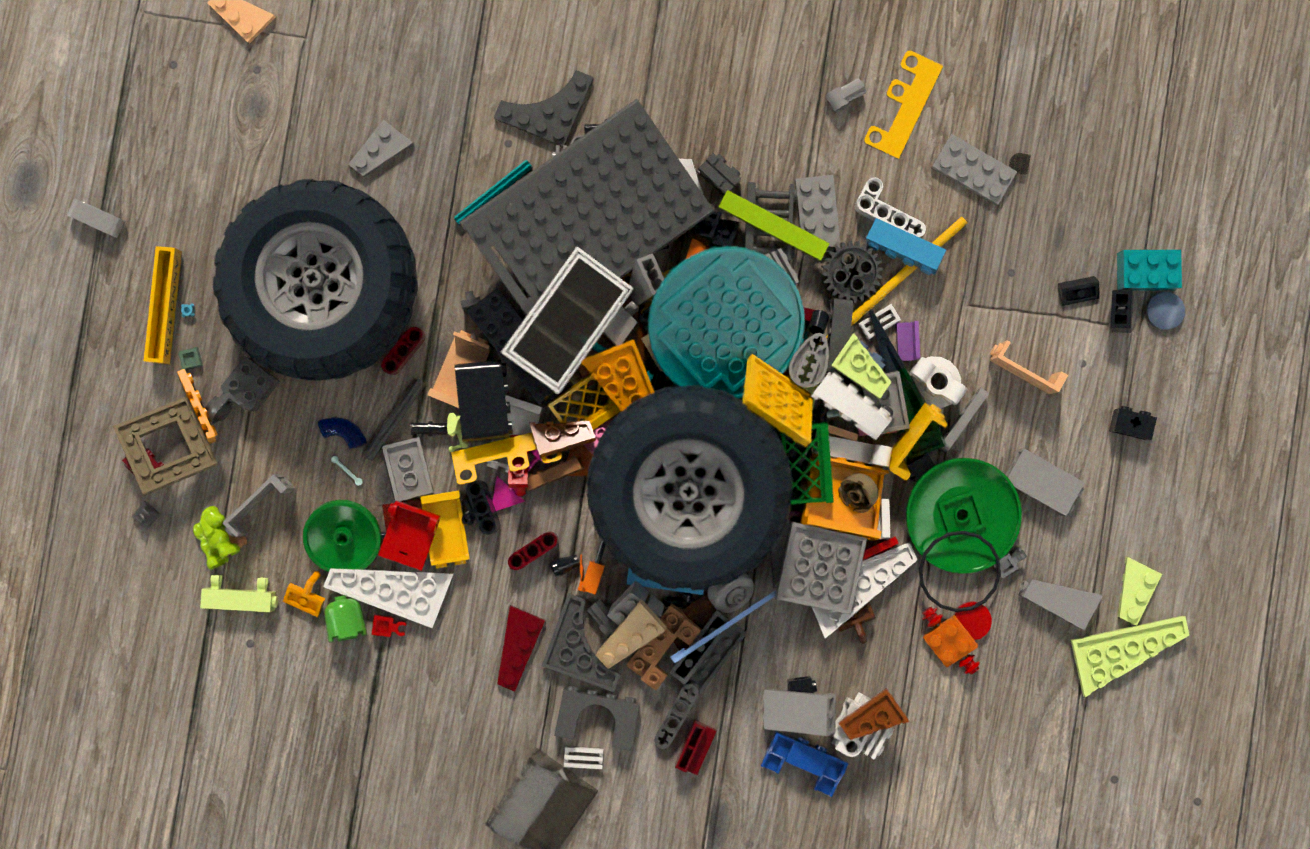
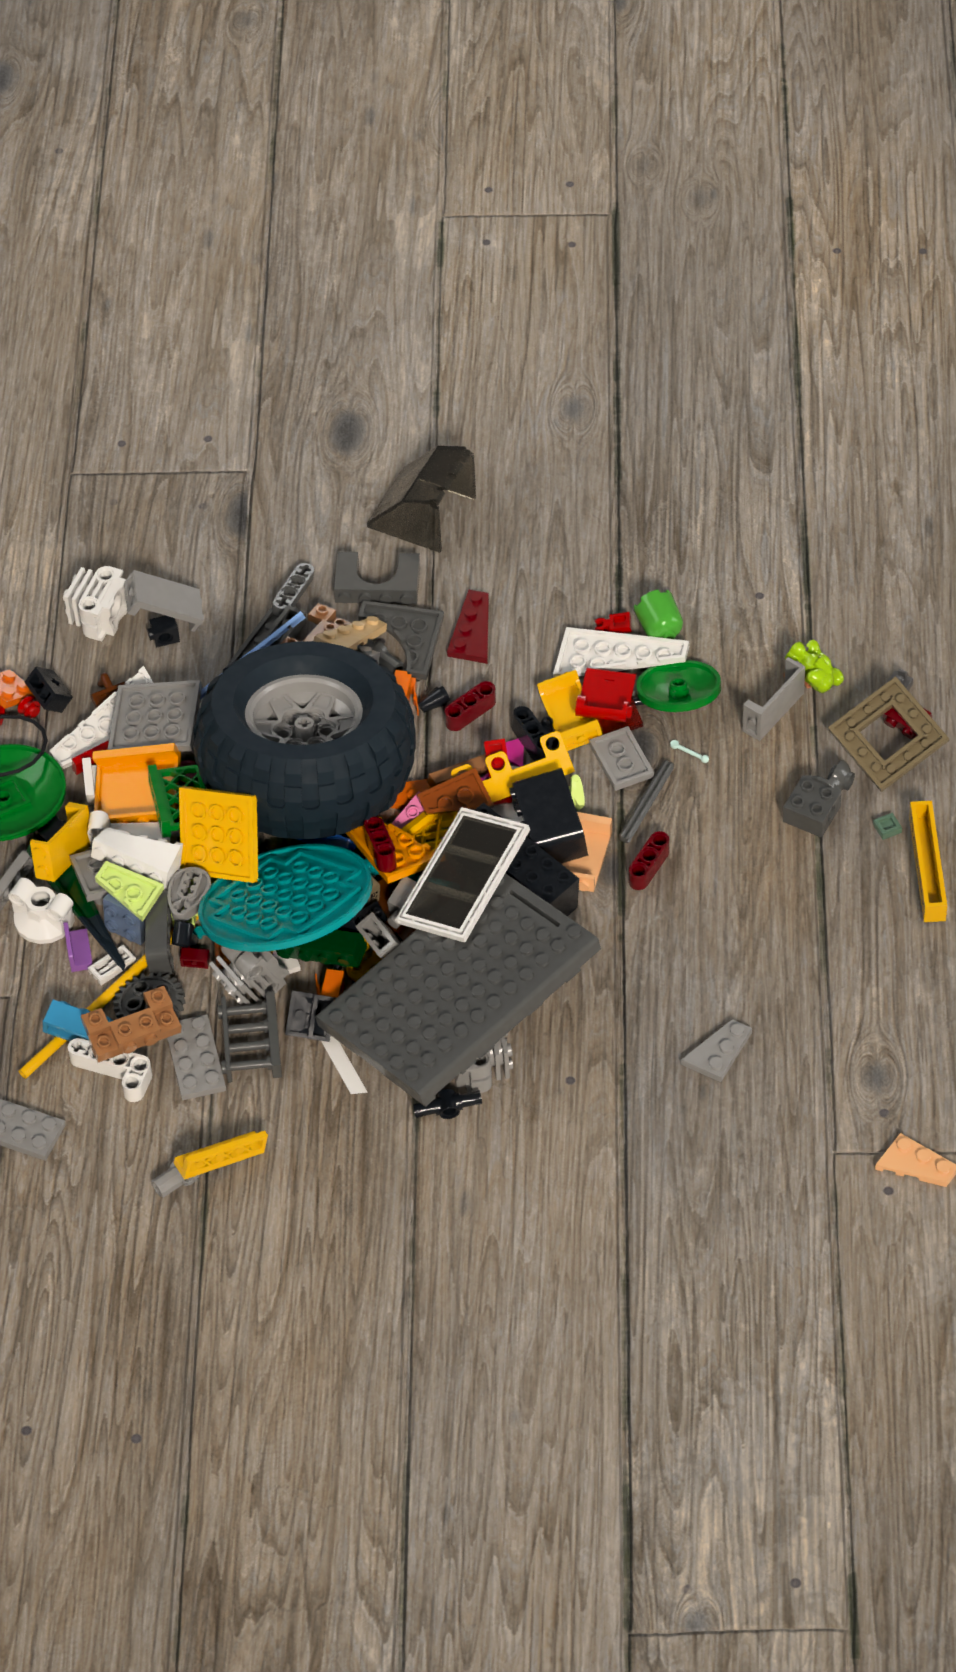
camera: 175 degrees right, 35 degrees down
(188, 310) = (902, 869): medium azure piece -> none
(195, 398) = (864, 776): light orange wing -> none
(238, 599) = (778, 624): yellowish green brick -> none
(299, 220) = (760, 845): black wheel -> none
(304, 598) = (706, 633): light orange plate -> none
(343, 428) = (700, 782): clear blue cylinder -> none
(429, 428) = (605, 797): black pin -> none
(470, 301) = (581, 913): dark grey tile -> none
(495, 190) = (577, 1026): teal axle -> none
(552, 117) = (525, 1108): dark grey plate -> none
(587, 758) = (386, 548): white tile -> none
(631, 366) = (380, 844): none -> dark red beam
(695, 747) = (270, 568): dark red piece -> none
(719, 174) = (315, 1075): dark grey brick -> none
(773, 225) = (245, 1023): lime tile -> none
(807, 104) = (221, 1154): none -> yellow fence
(807, 757) = (128, 561): blue bracket -> none
(859, 492) = (118, 792): dark tan cylinder -> none
(868, 228) = (134, 1030): none -> medium nougat bracket
(874, 715) = (82, 599): dark orange wing -> none
(912, 105) = (94, 1184): yellow piece -> none
(913, 631) = (48, 689): none -> black brick

